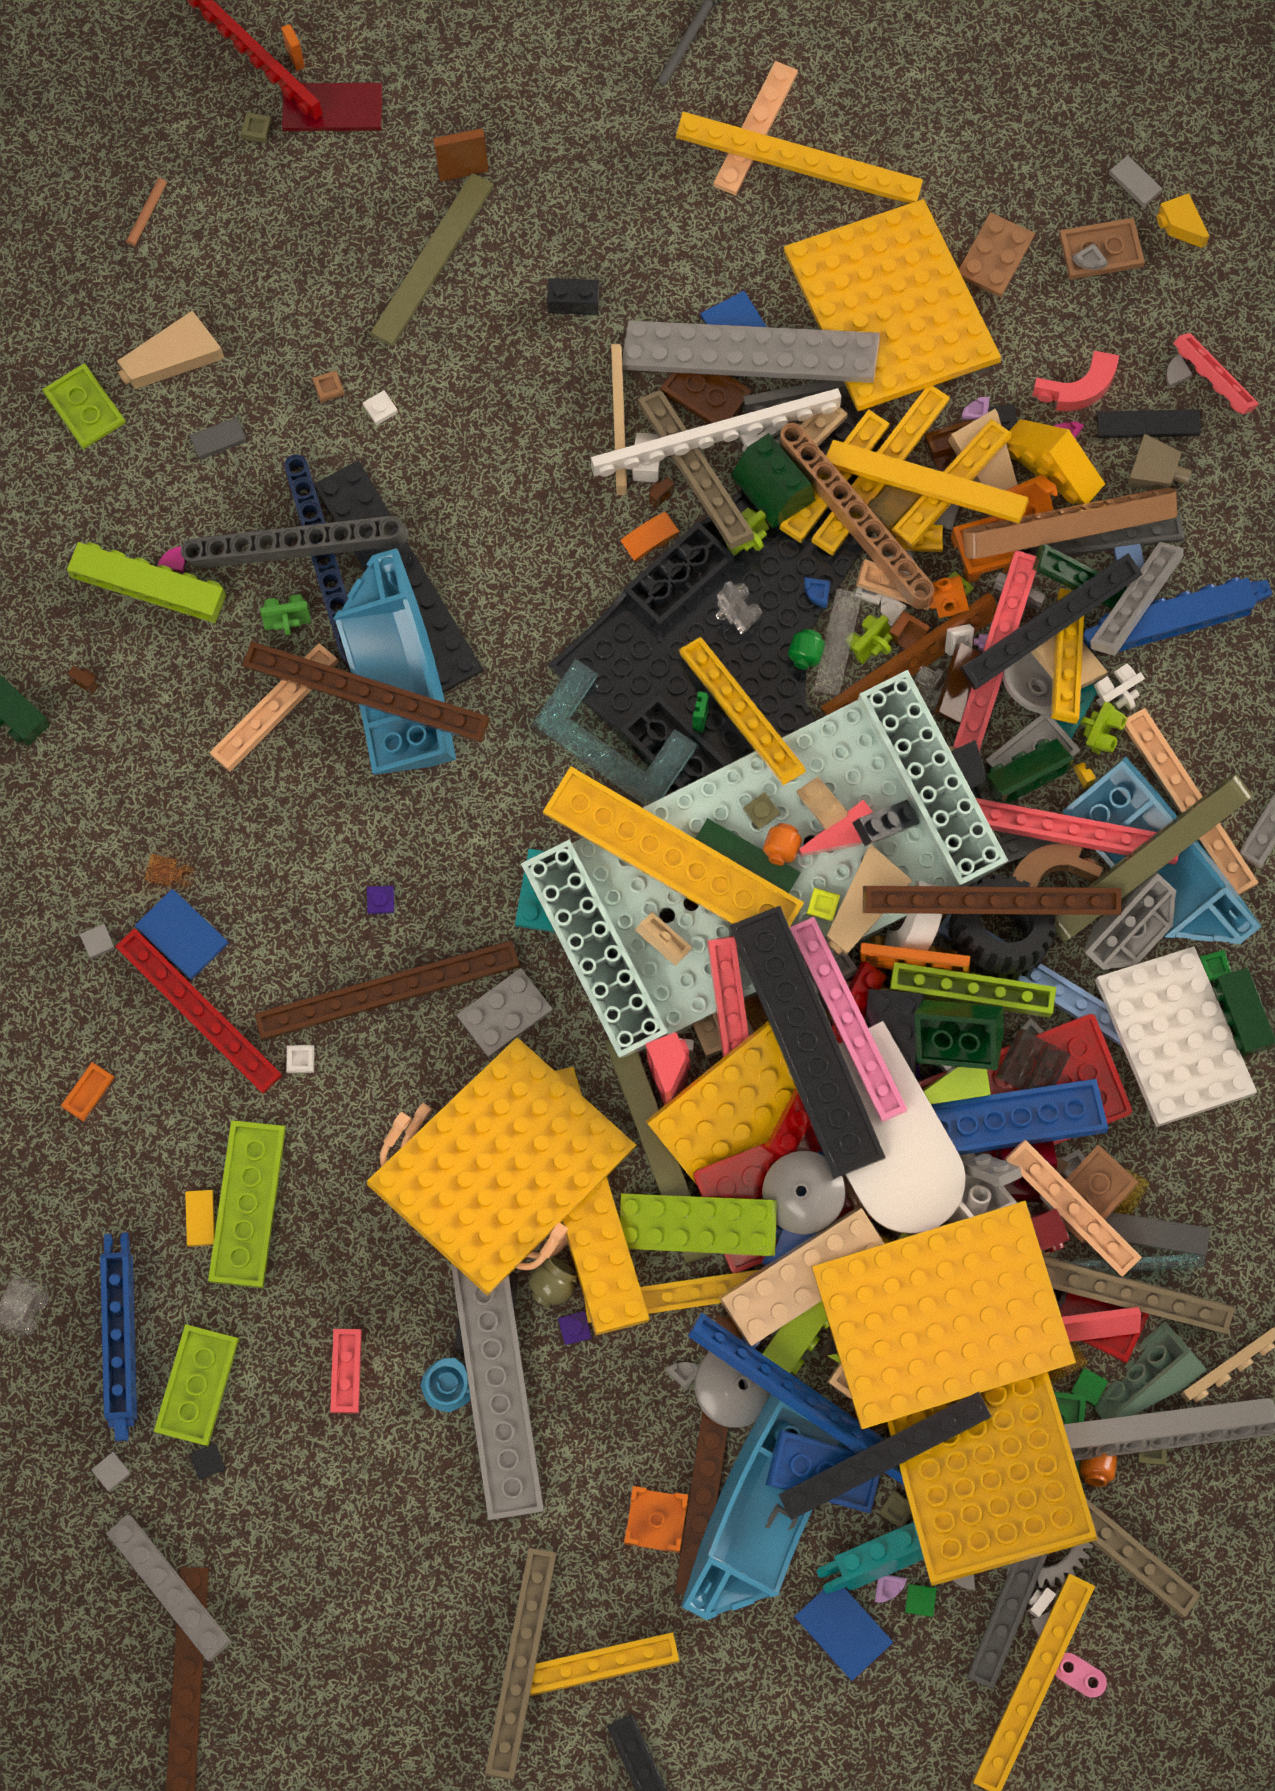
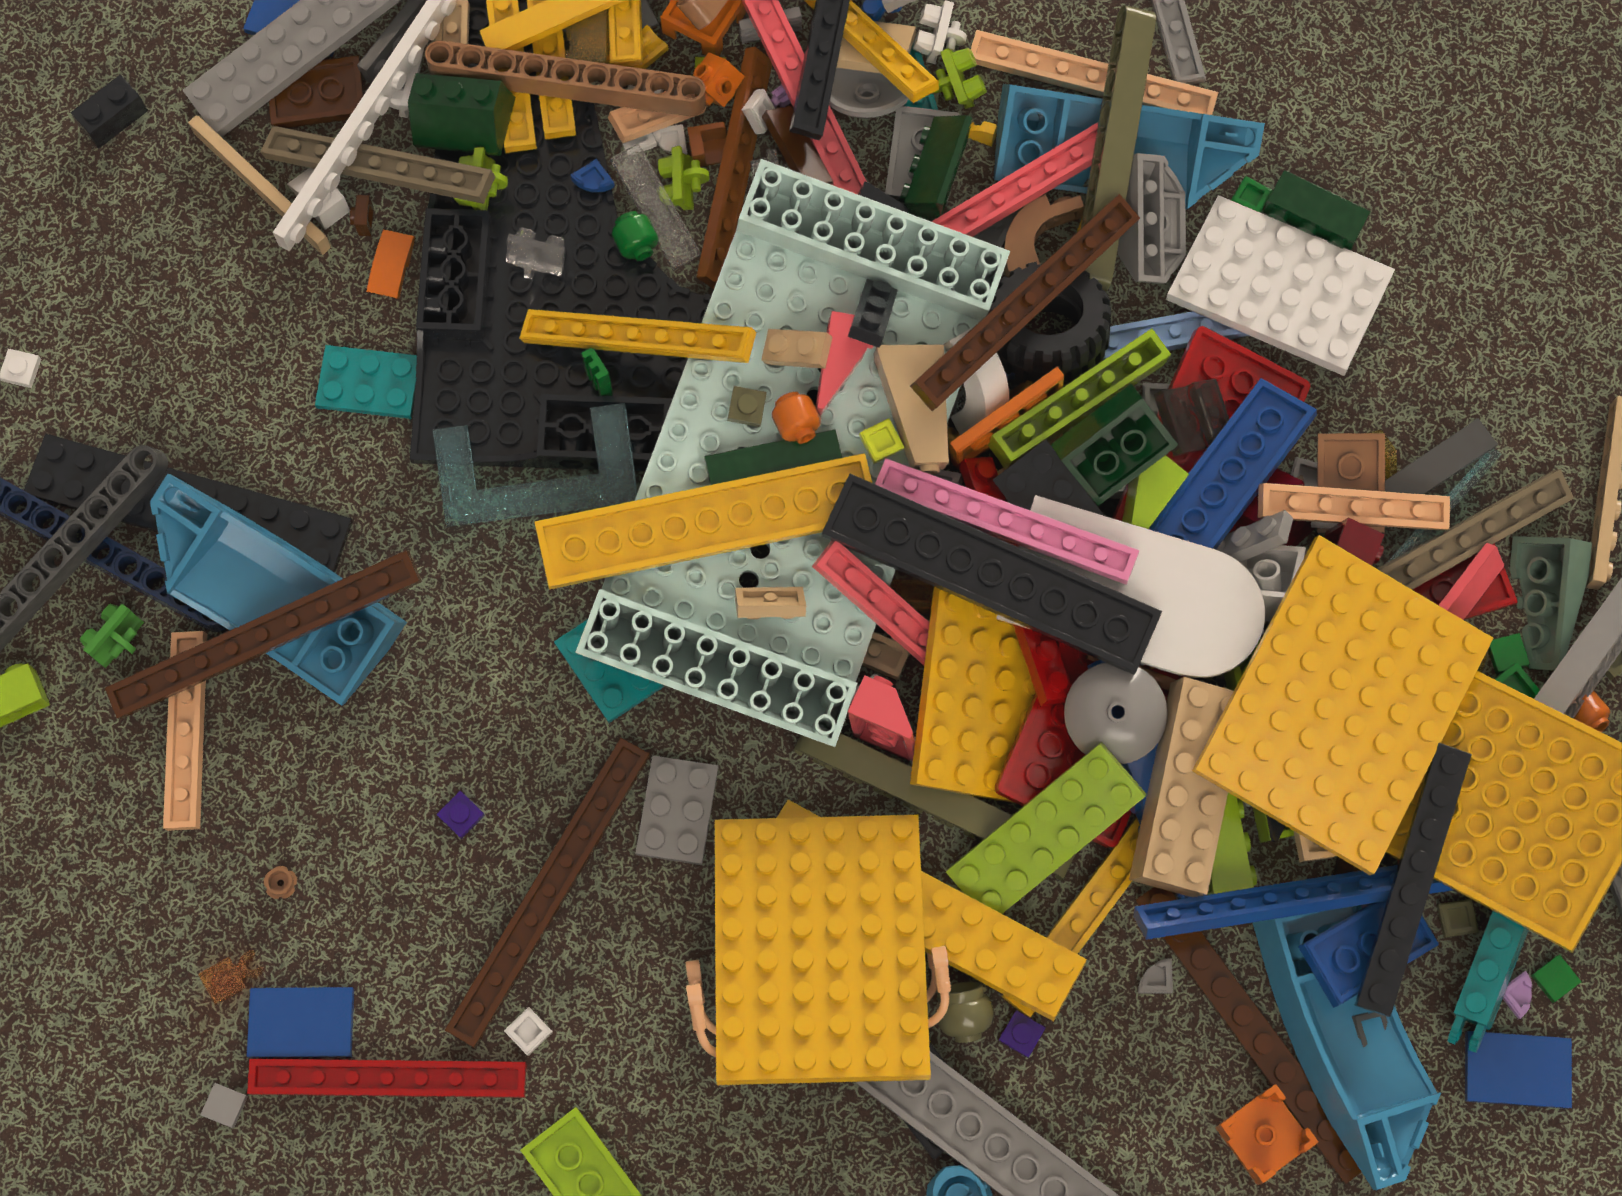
camera: 45 degrees left, 0 degrees up
(241, 838) = (271, 882): none -> medium nougat plate
(569, 595) = (367, 382): none -> teal plate
(722, 1398) = (1214, 965): light grey dish -> none

